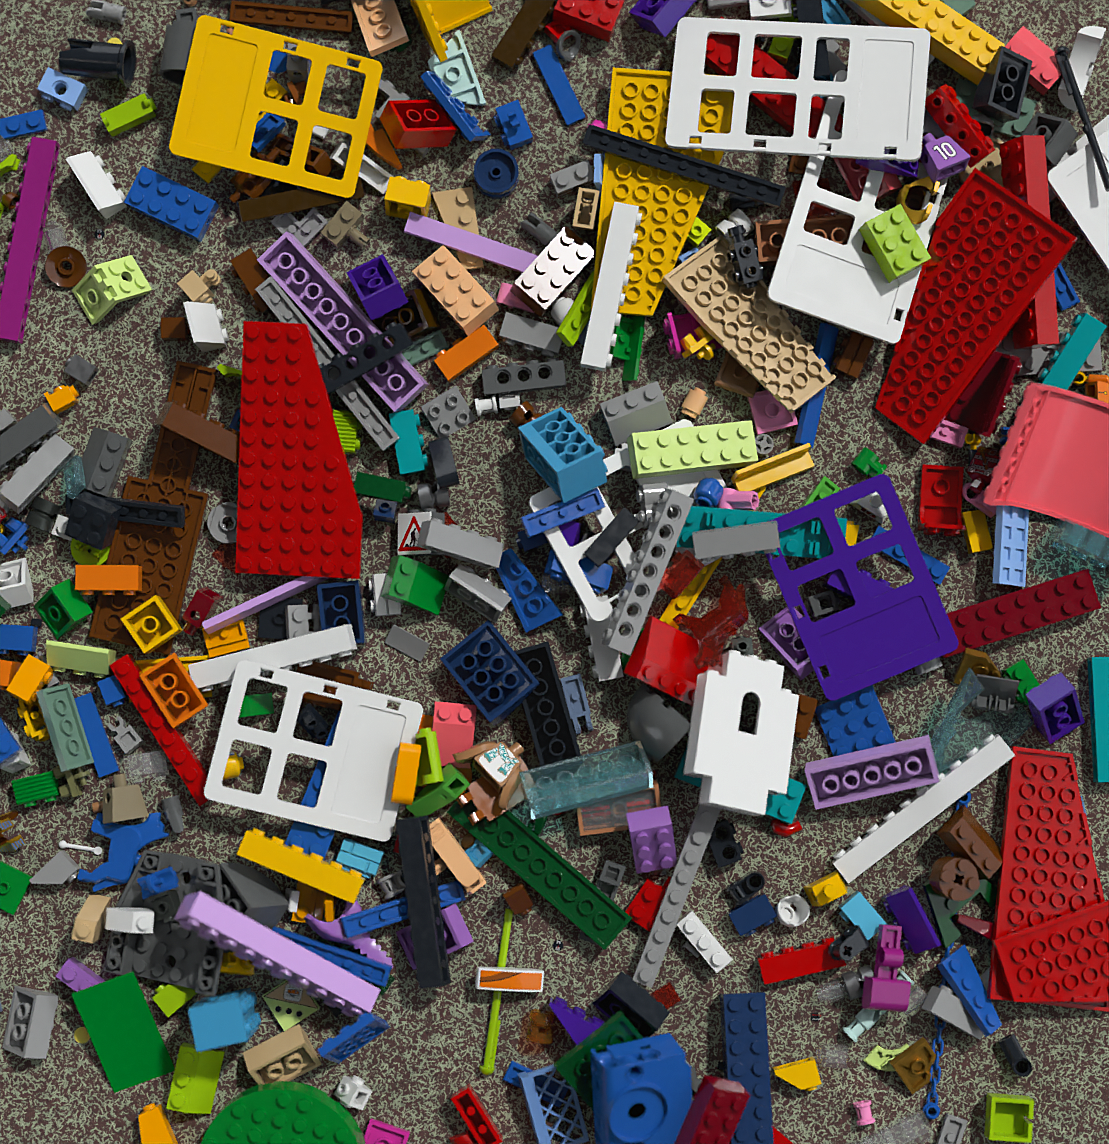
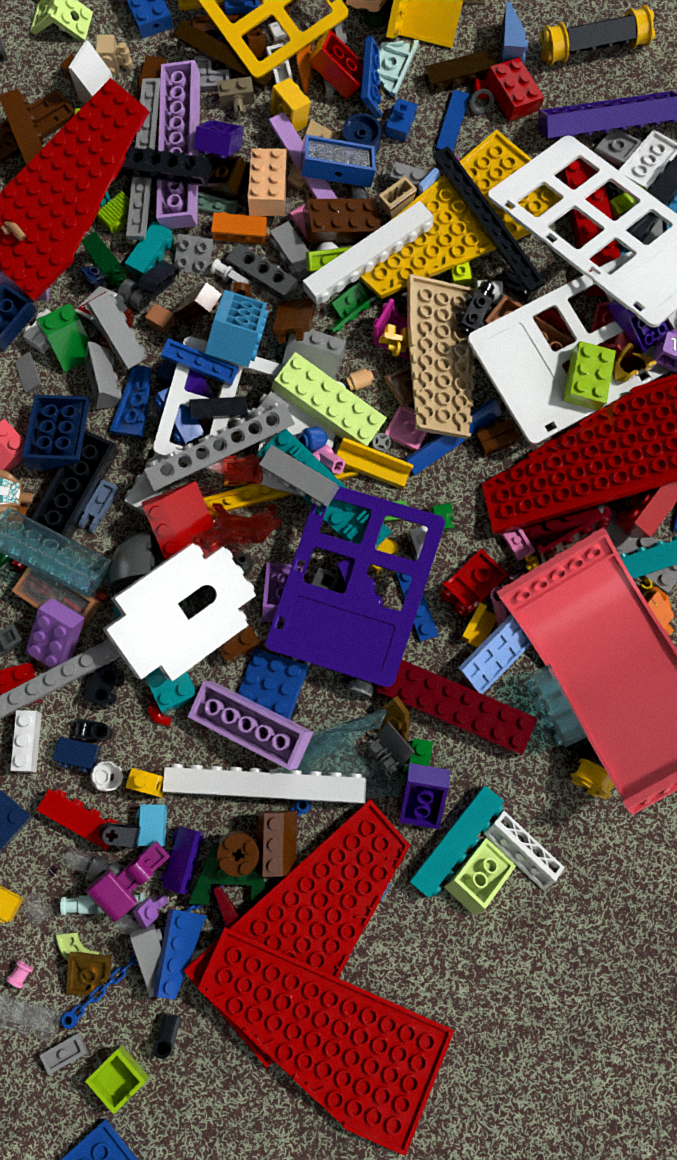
camera: 45 degrees right, 10 degrees down
(294, 532) = (14, 228): none -> medium nougat arm
(474, 496) = (160, 318): none -> nougat brick
(503, 220) = (338, 161): none -> blue brick
(507, 460) = (198, 303): none -> reddish brown brick
(595, 400) = (293, 317): none -> reddish brown tile
(919, 980) = (147, 911): none -> medium lavender plate

